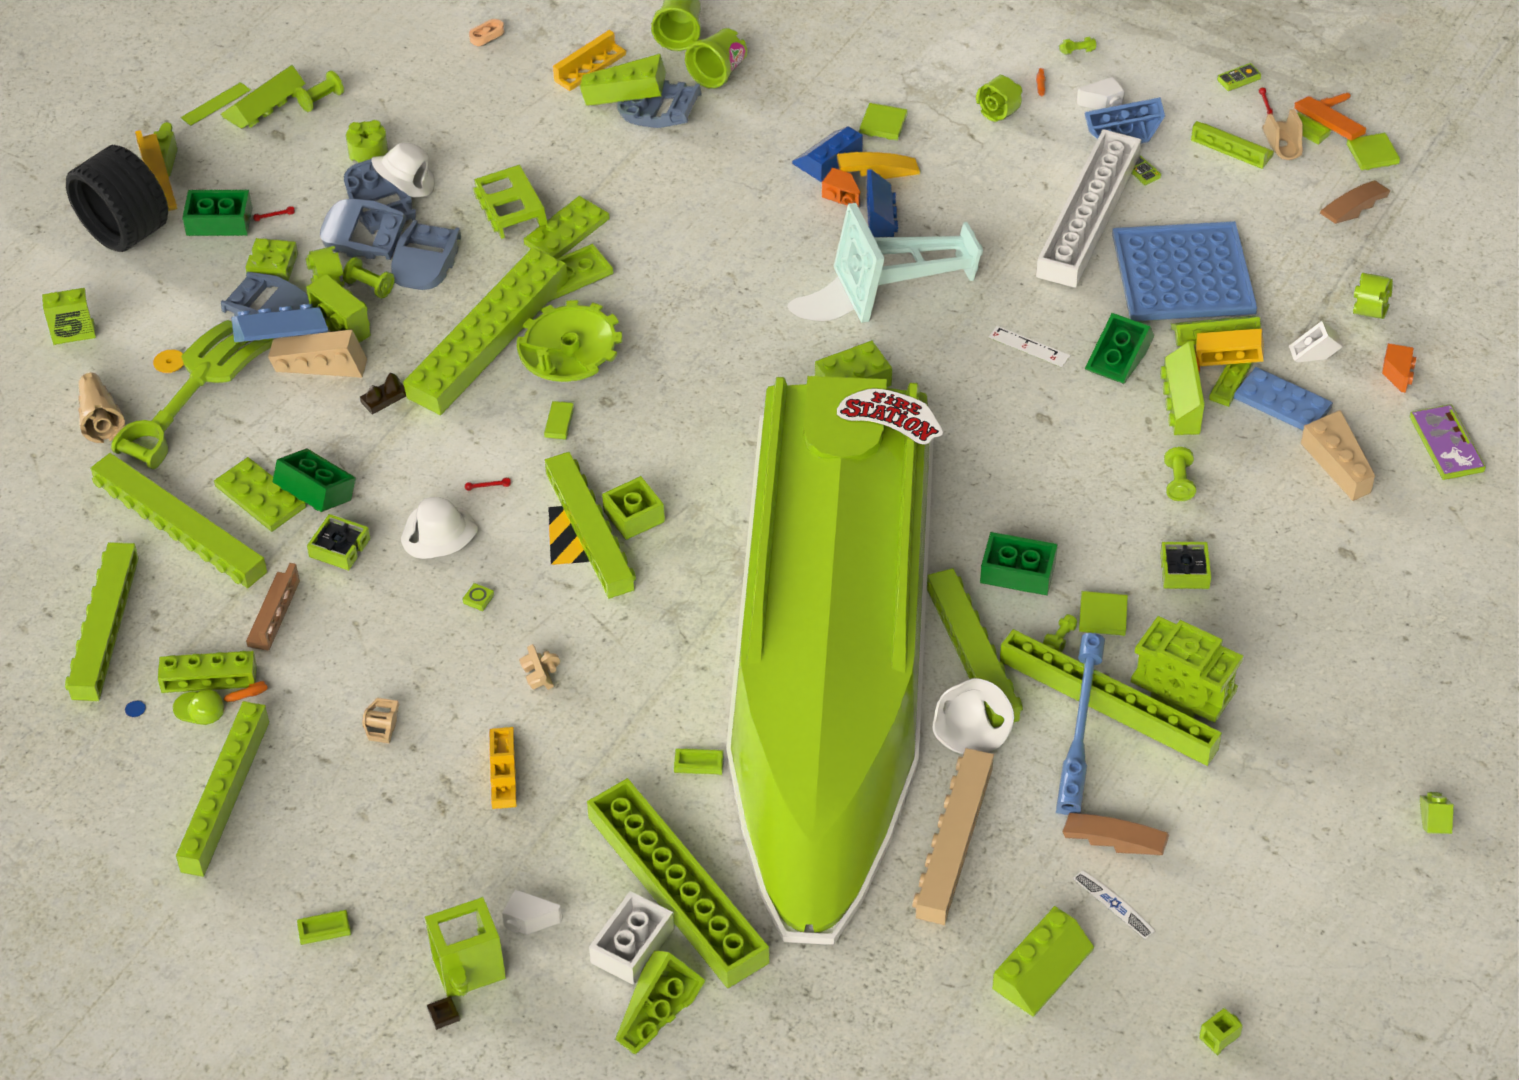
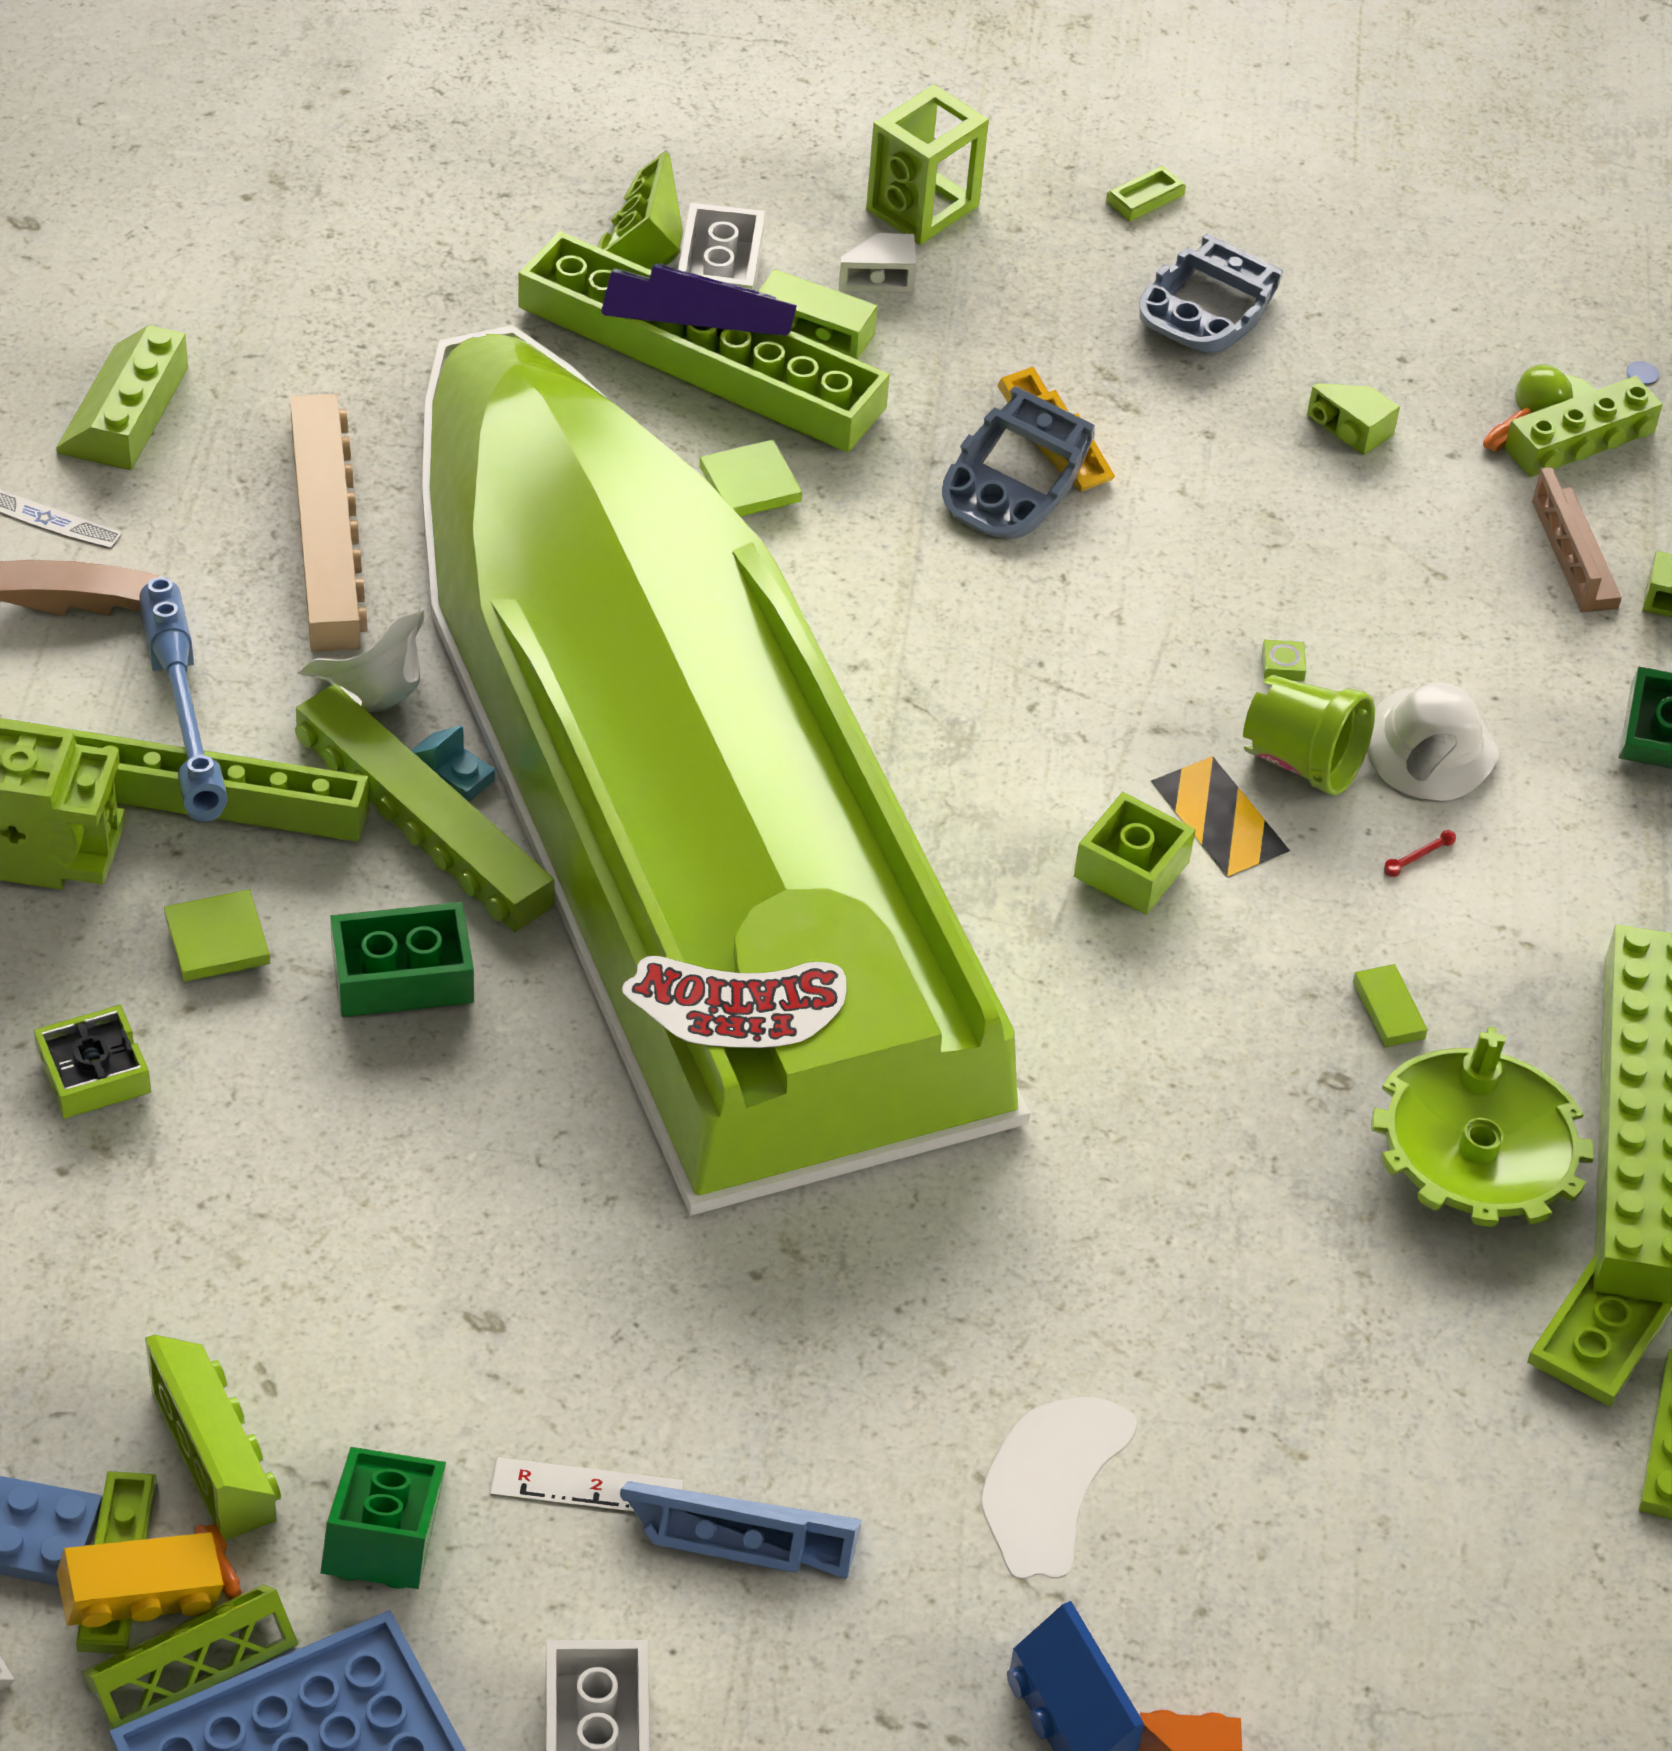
camera: 150 degrees right, 0 degrees up
(222, 789) = (1419, 292): lime brick -> none
(327, 720) = (1354, 414): none -> lime slope
(338, 542) = (1567, 660): piece -> none
(372, 811) = (1186, 320): none -> sand blue slope
(380, 719) = (1280, 437): tan piece -> none
(504, 529) = (1311, 731): none -> lime piece
(541, 664) = (1104, 572): tan hips -> none
(562, 731) = (996, 501): none -> sand blue slope
(590, 525) = (1225, 835): lime brick -> none
(590, 886) = (824, 313): none -> brick
(674, 882) = (696, 301): none -> dark purple wedge
(697, 788) = (752, 478): none -> tile
(698, 761) = (782, 523): lime tile -> none
(856, 362) = (904, 1264): lime brick -> none
(861, 259) = (1013, 1445): light aqua piece -> none
(946, 670) = (453, 763): none -> medium azure slope
(971, 307) = (744, 1529): none -> medium blue wedge
(1056, 641) = (284, 863): lime bar -> none
(1180, 488) = (170, 1277): lime hose -> none

